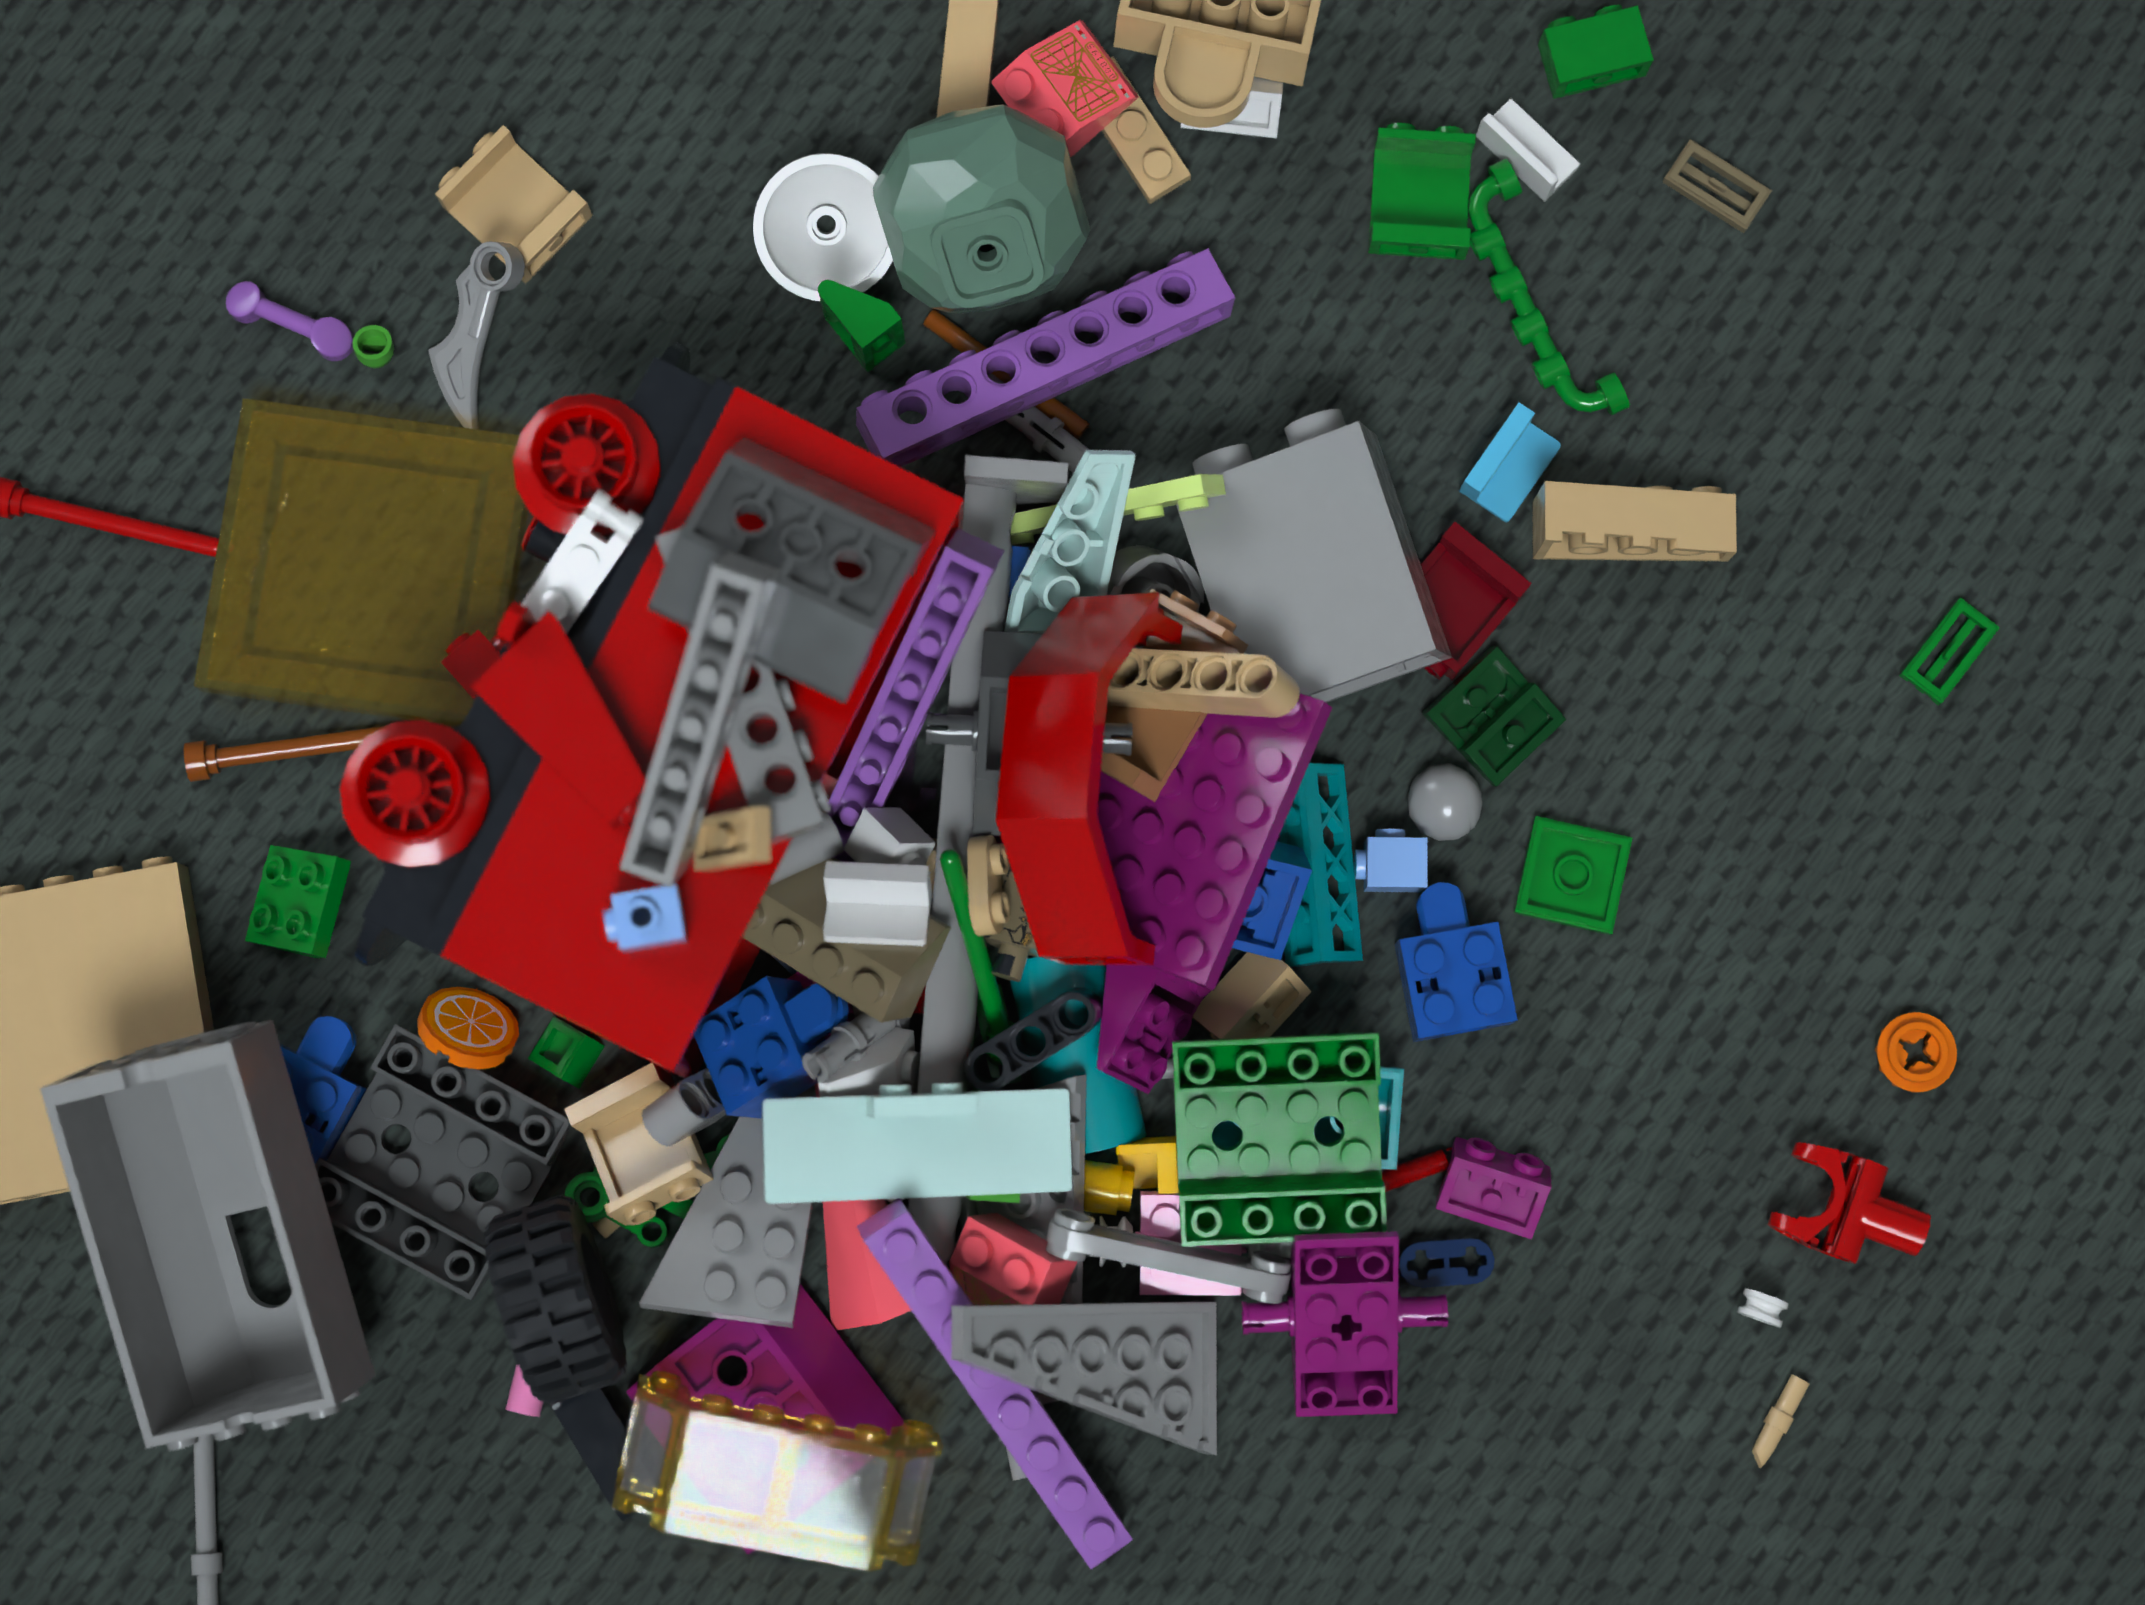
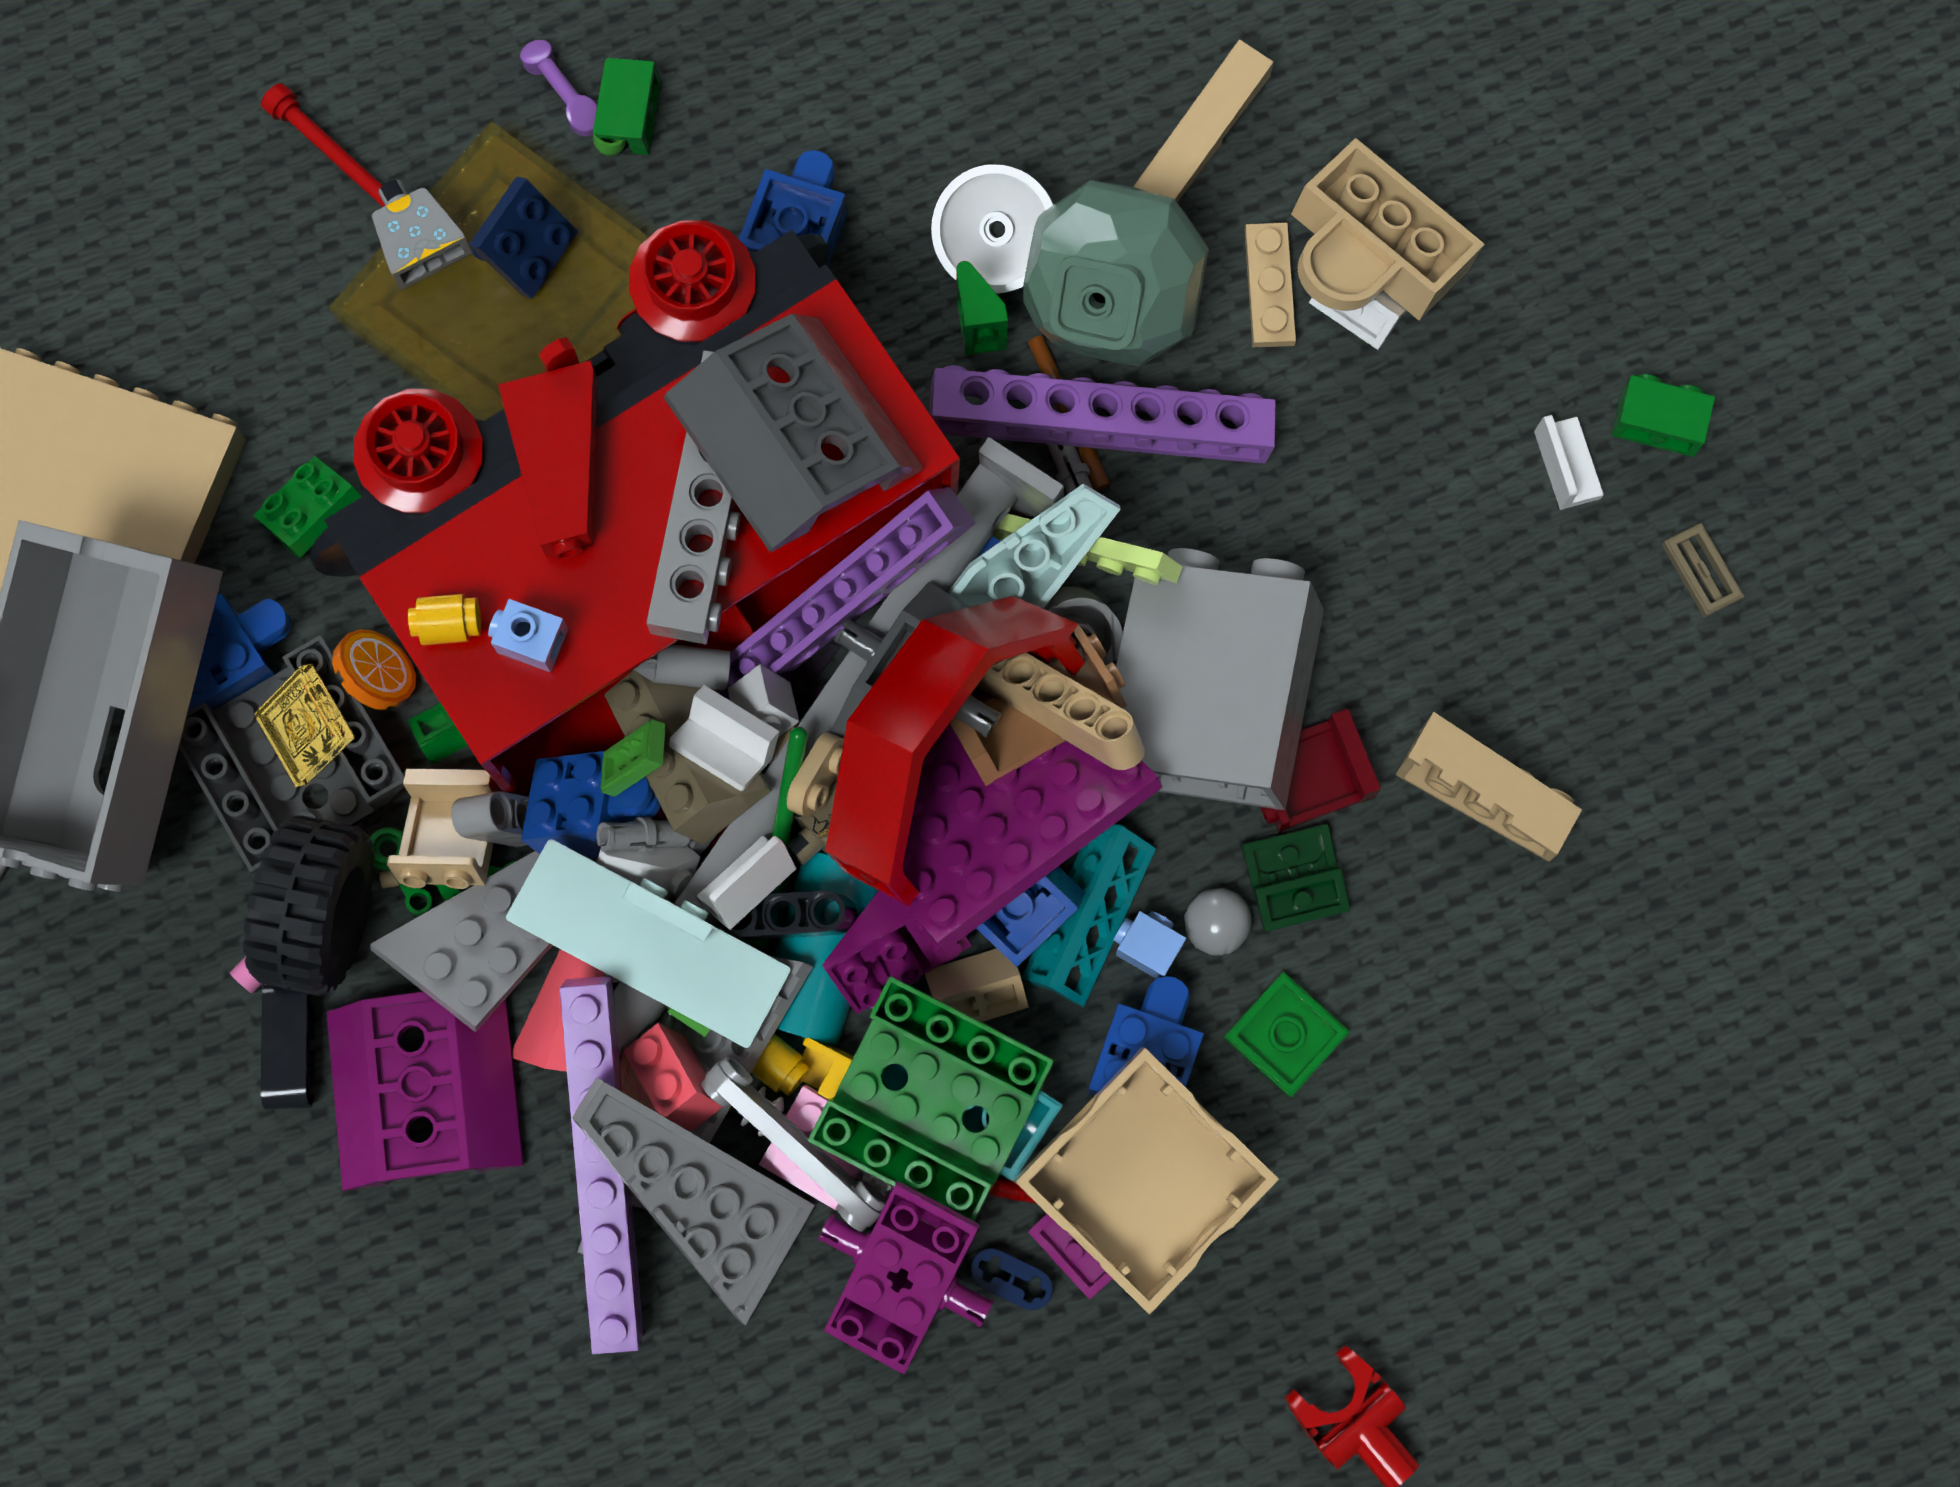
camera: 30 degrees right, 5 degrees down
(204, 759) = (304, 367): dark orange piece -> none
(241, 560) = (416, 234): none -> light grey torso
(356, 504) = (523, 237): none -> dark blue plate
(371, 301) = (628, 102): none -> green panel
(434, 1124) = (304, 725): none -> clear yellow tile
(459, 355) = (669, 177): light grey piece -> none
(512, 201) = (773, 90): tan panel -> none
(555, 950) = (445, 619): none -> yellow brick
(581, 561) = (643, 345): white plate -> none
(615, 323) = (796, 204): none -> blue brick
(699, 718) = (651, 498): light grey brick -> none
(733, 839) = (626, 609): tan plate -> none
(774, 1477) = (394, 1140): windscreen -> none
(799, 973) = (633, 758): none -> bright green plate
(977, 1029) = (747, 881): none -> white panel
(1067, 85) = (1238, 223): coral slope -> none
(1421, 192) = (1466, 449): green panel -> none
(1510, 465) = (1417, 691): medium azure panel -> none
(1526, 1095) = (1145, 1179): none -> tan tile
(1530, 324) = (1494, 594): green bar -> none
(1762, 1307) = (1242, 1461): white bush -> none
(1924, 683) = (1652, 1043): green tile -> none
(1938, 1047) = (1502, 1338): orange gear -> none

